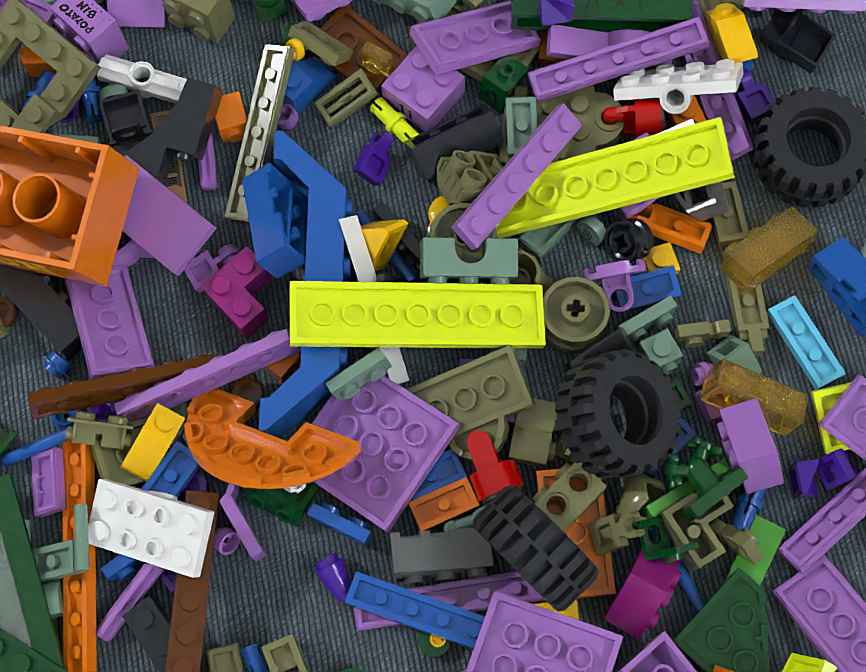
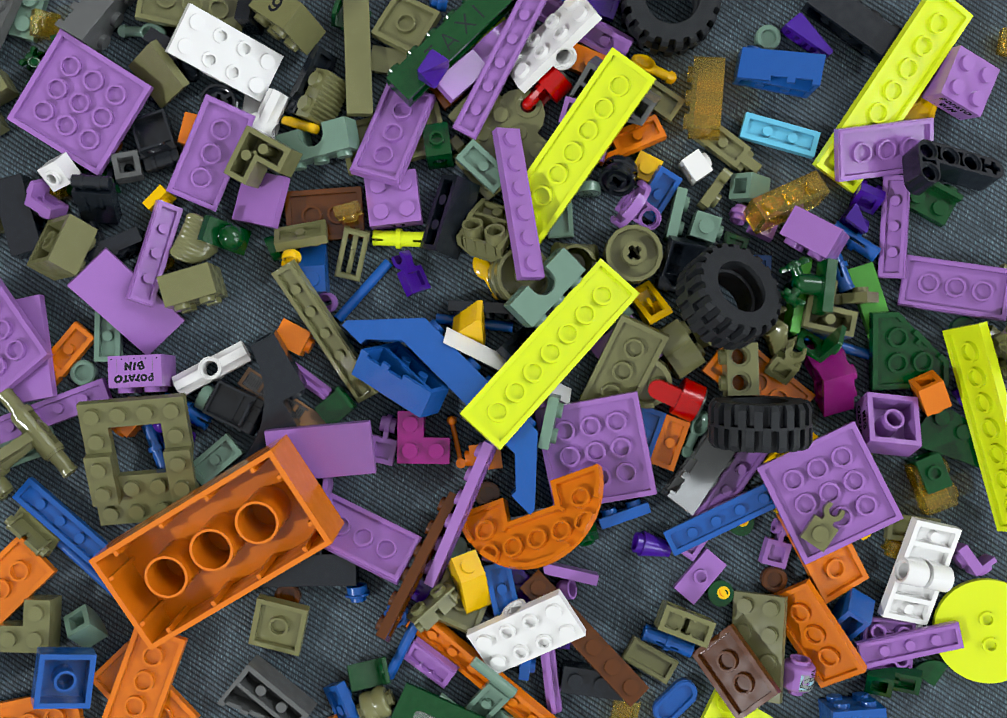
camera: 55 degrees left, 15 degrees up
(207, 201) = (335, 406): none -> dark green bracket
(283, 306) = (460, 463): none -> orange hinge
(330, 136) = (363, 290): none -> blue bar
(349, 650) = (699, 576): none -> medium lavender plate
(547, 373) = (650, 304): none -> yellow slope
(704, 298) = (696, 166): none -> white plate
(745, 183) = (650, 66): none -> yellow piece
(791, 515) = (870, 250): none -> blue pin

